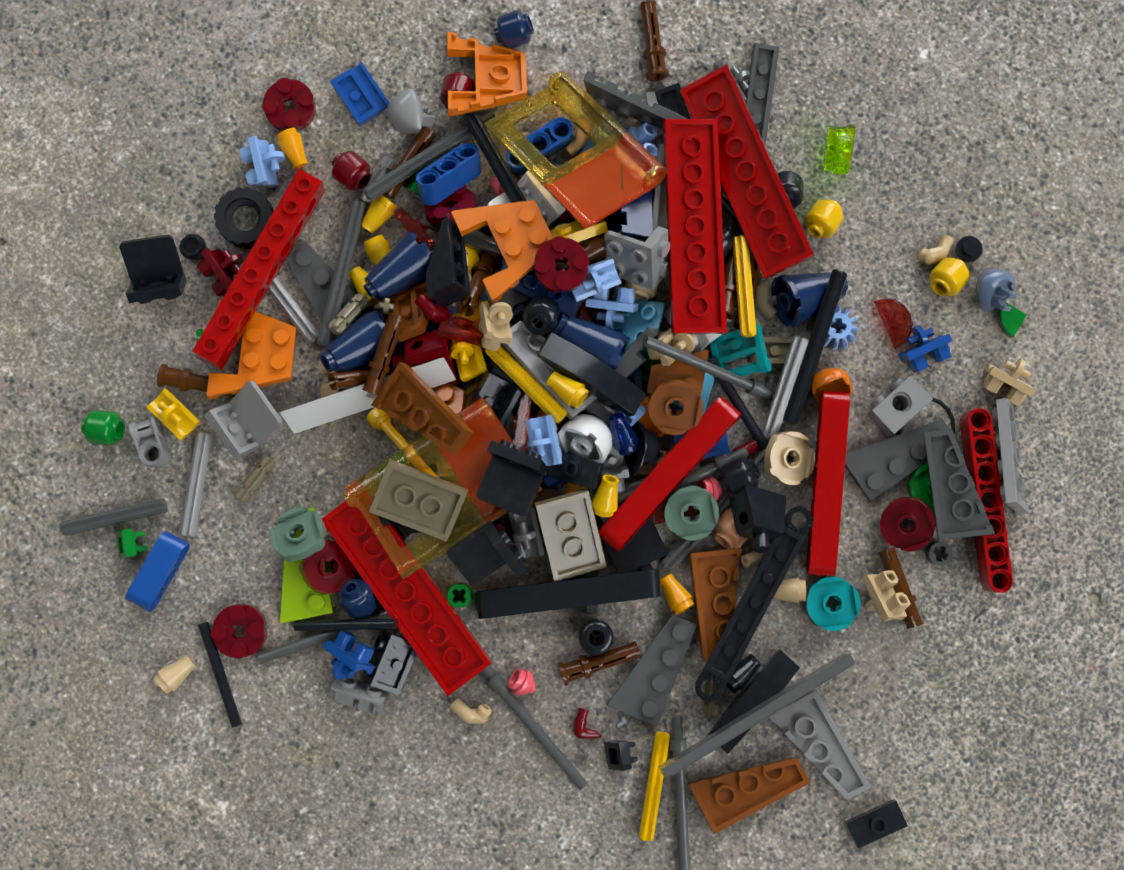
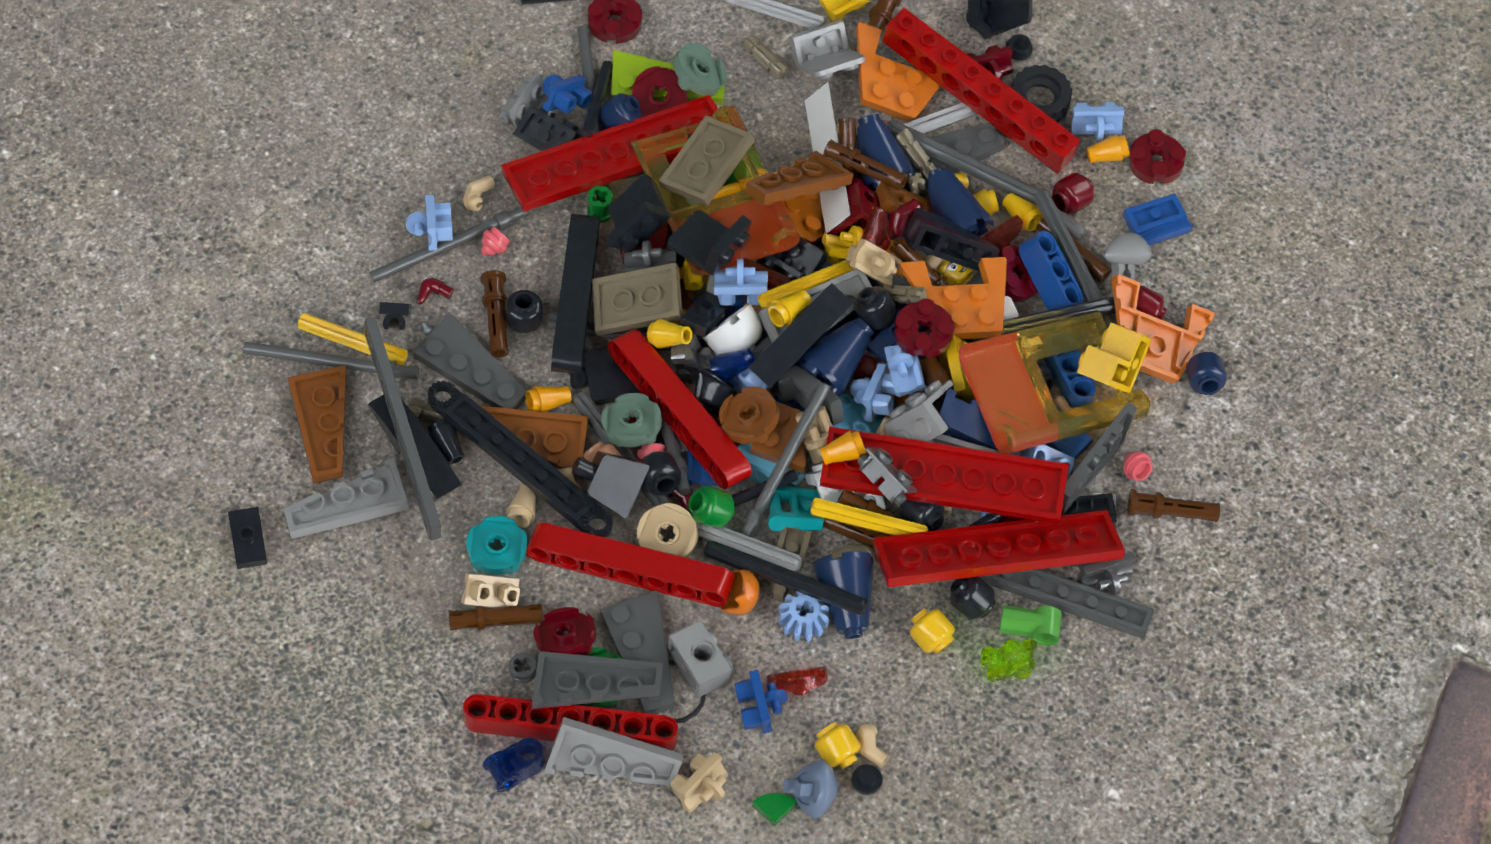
camera: 100 degrees right, 25 degrees down
(522, 292) = (905, 294): none -> dark tan axle
(530, 740) = (435, 222): none -> light blue hips
(543, 102) = (1118, 358): none -> yellow brick
(619, 75) = (1137, 466): none -> coral plate
(699, 314) = (844, 448): none -> light orange cone
(720, 262) = (880, 465): none -> dark grey hinge
(763, 423) = (711, 507): none -> green head
(793, 132) = (1039, 624): none -> bright green piece
(1036, 541) = (510, 768): none -> clear blue piece

